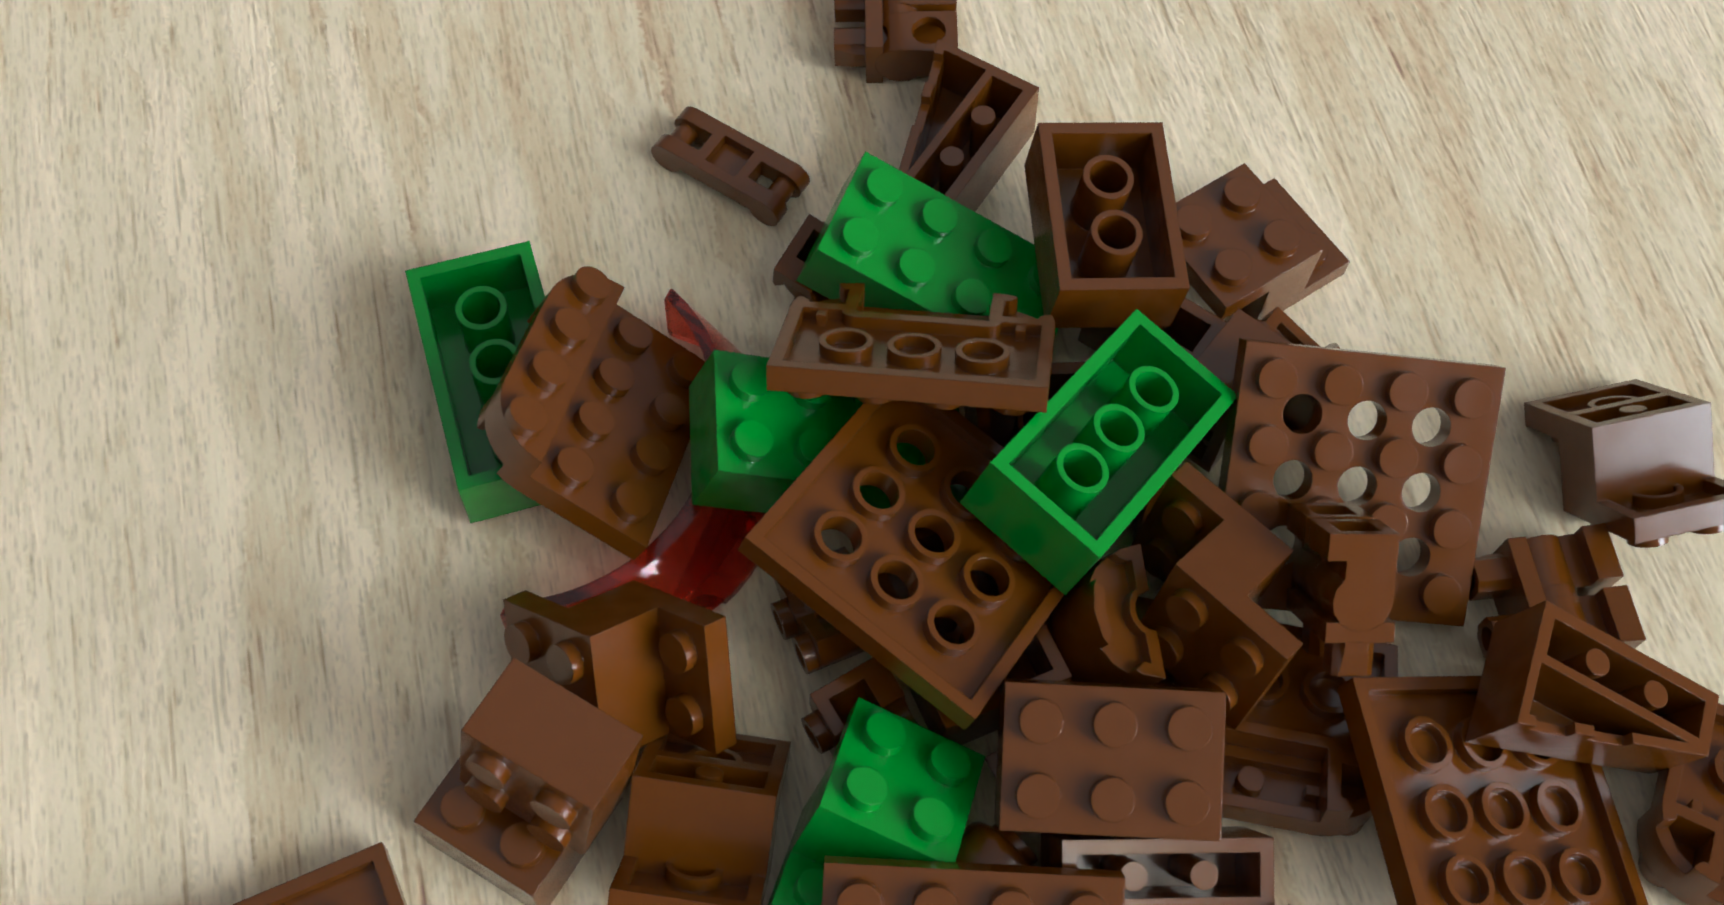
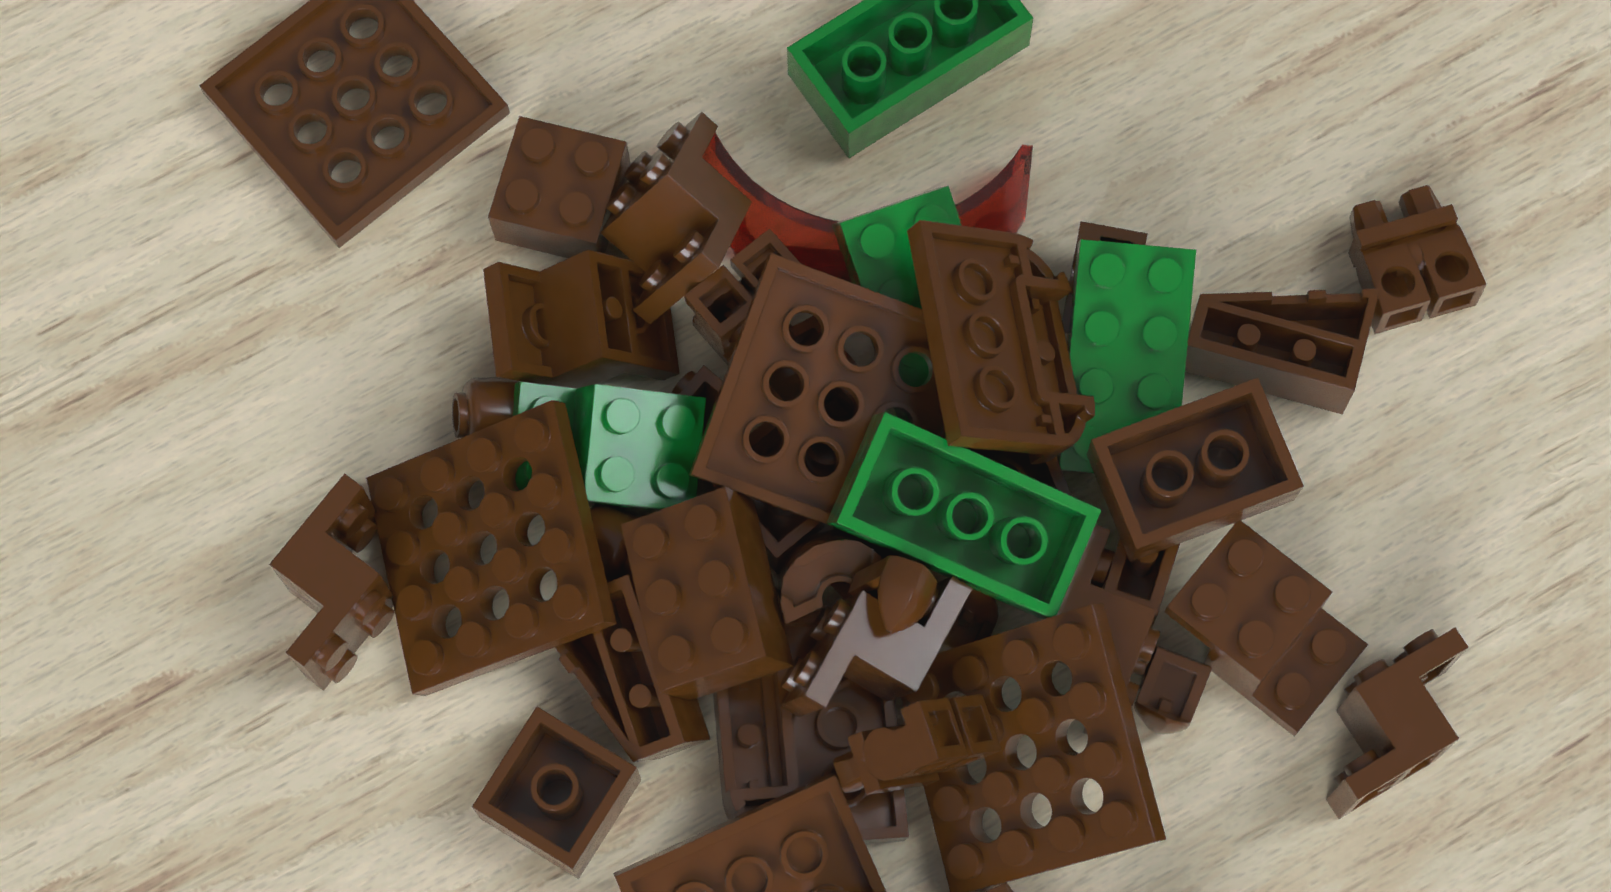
camera: 80 degrees right, 10 degrees up
(546, 758) = (570, 180): reddish brown brick -> none
(593, 412) = (888, 121): reddish brown plate -> none
(731, 164) = (1201, 161): reddish brown plate -> none
(761, 632) = (724, 301): none -> reddish brown hips
(1174, 529) = (901, 587): none -> reddish brown plate
(1375, 166) = (1395, 720): none -> reddish brown bracket

